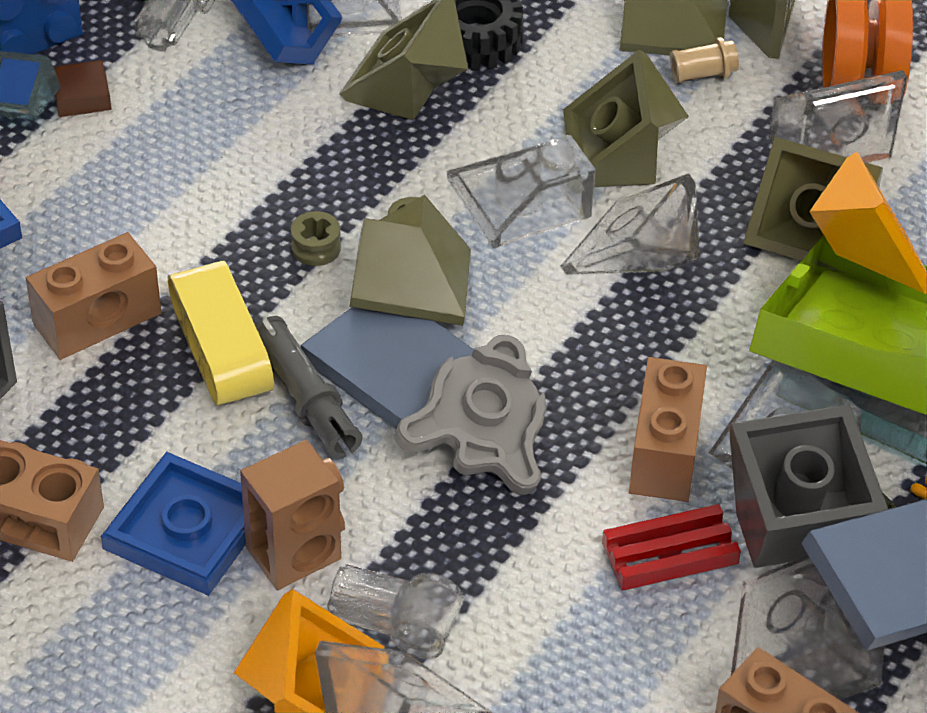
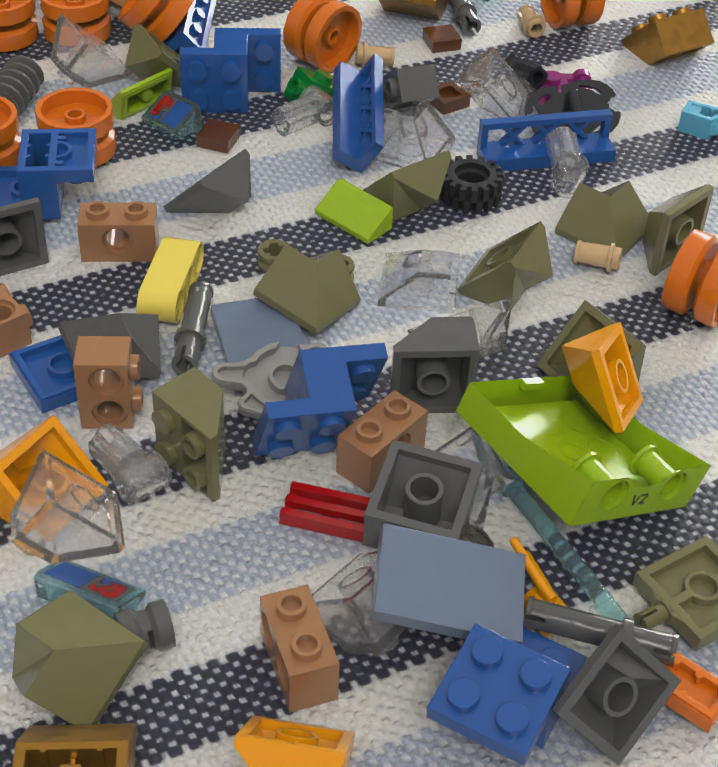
camera: 30 degrees right, 5 degrees down
(162, 169) = (219, 190): none -> dark grey slope
(211, 458) = (141, 328): none -> dark grey slope
(364, 127) = (355, 211): none -> lime slope
(463, 525) = (192, 430): none -> olive slope
(577, 413) = (318, 399): none -> blue bracket
(671, 299) = (436, 363): none -> dark grey slope
(843, 116) = (656, 315): clear slope -> none

